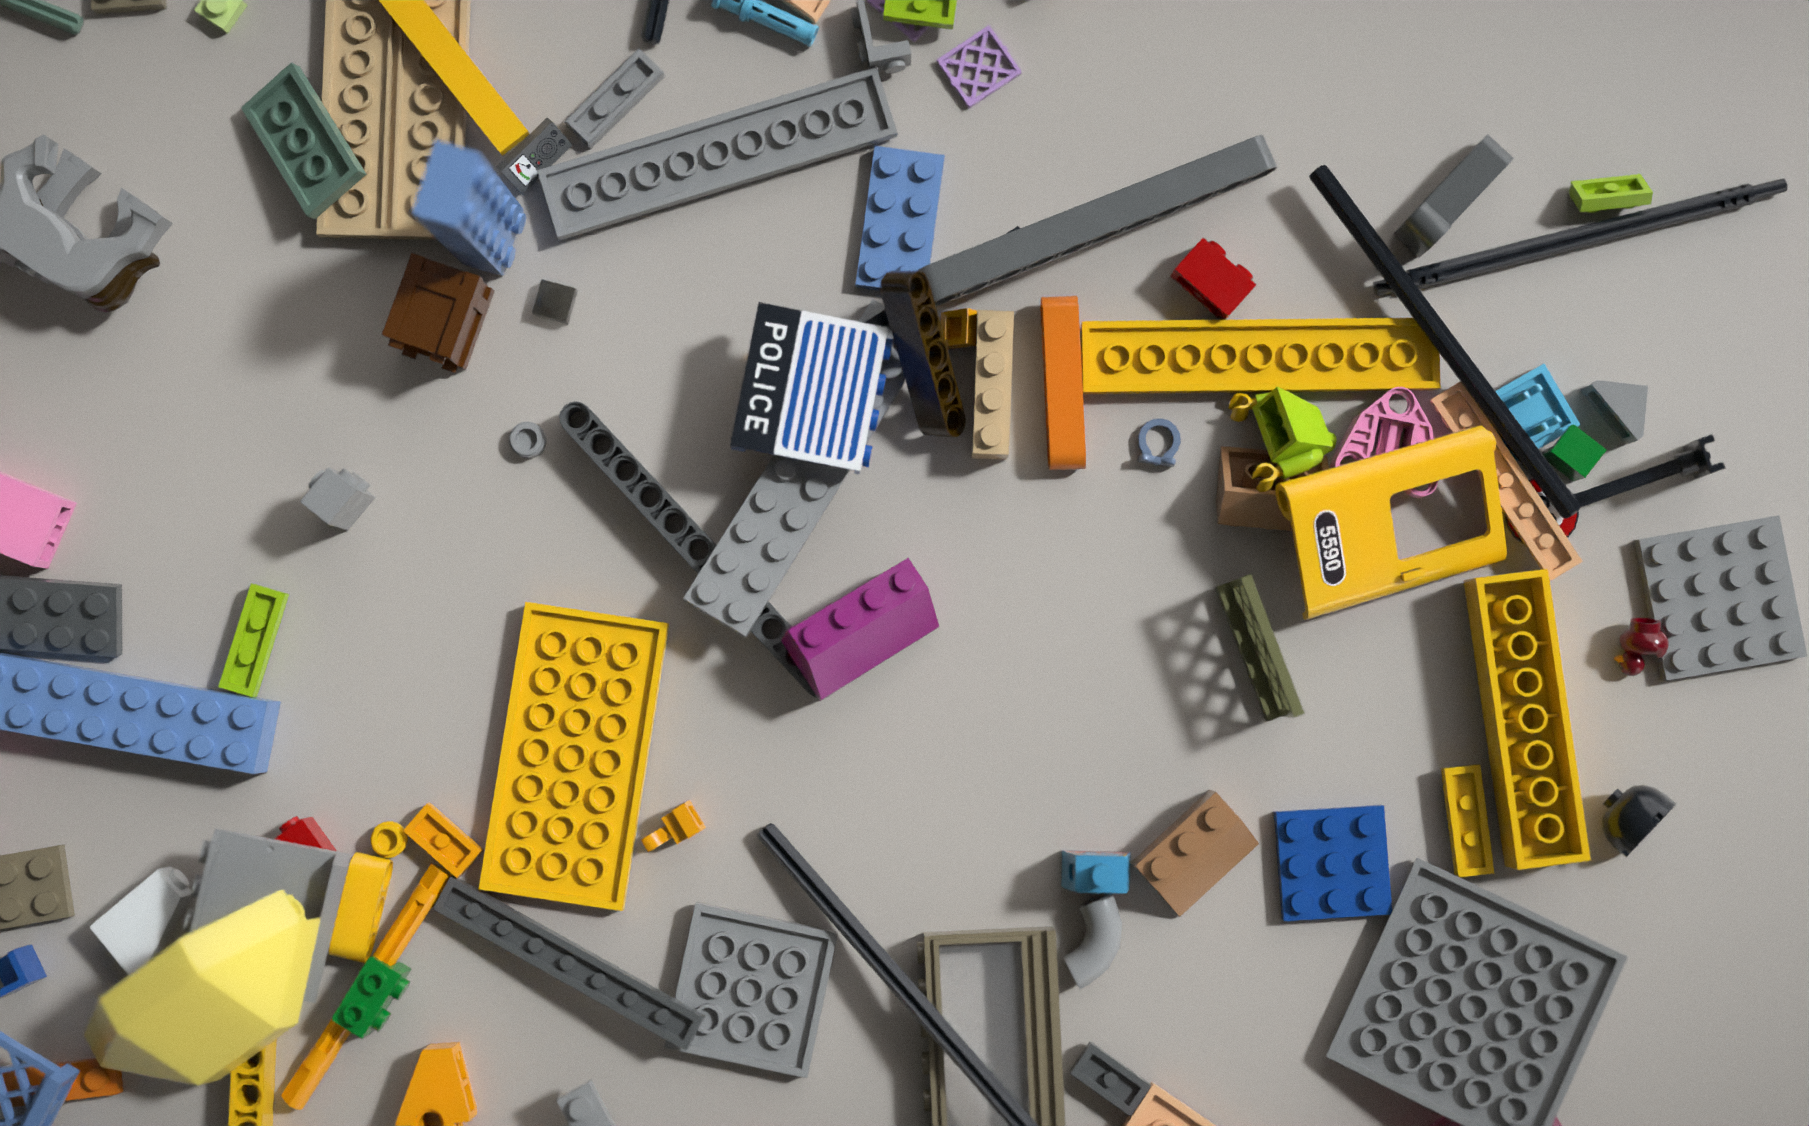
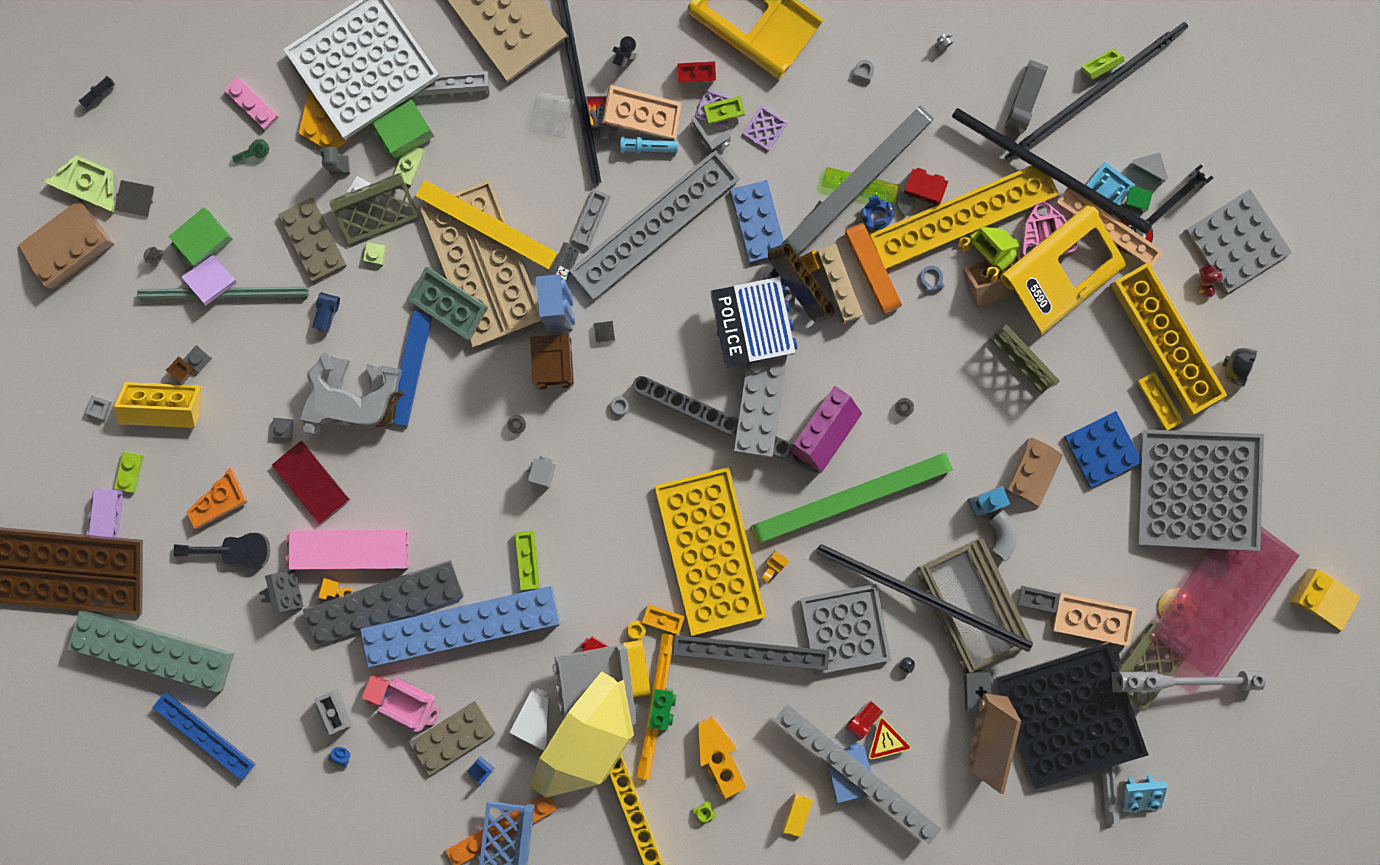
camera: 20 degrees left, 0 degrees up
(96, 65) = (326, 307): none -> dark blue piece
(199, 226) = (412, 365): none -> blue tile
(328, 391) = (510, 422): none -> clear smoke plate
(833, 1096) = (907, 664): none -> black hinge
(858, 765) = (851, 497): none -> bright green beam
(1025, 637) = (910, 405): none -> clear smoke plate
(1113, 275) = (873, 205): none -> blue piece
(1125, 250) = (885, 190): none -> clear neon green tile
(1165, 293) = (904, 203): none -> dark grey tile
(1191, 37) = (864, 70): none -> light grey tile
(1351, 42) = (944, 41): none -> light grey plate

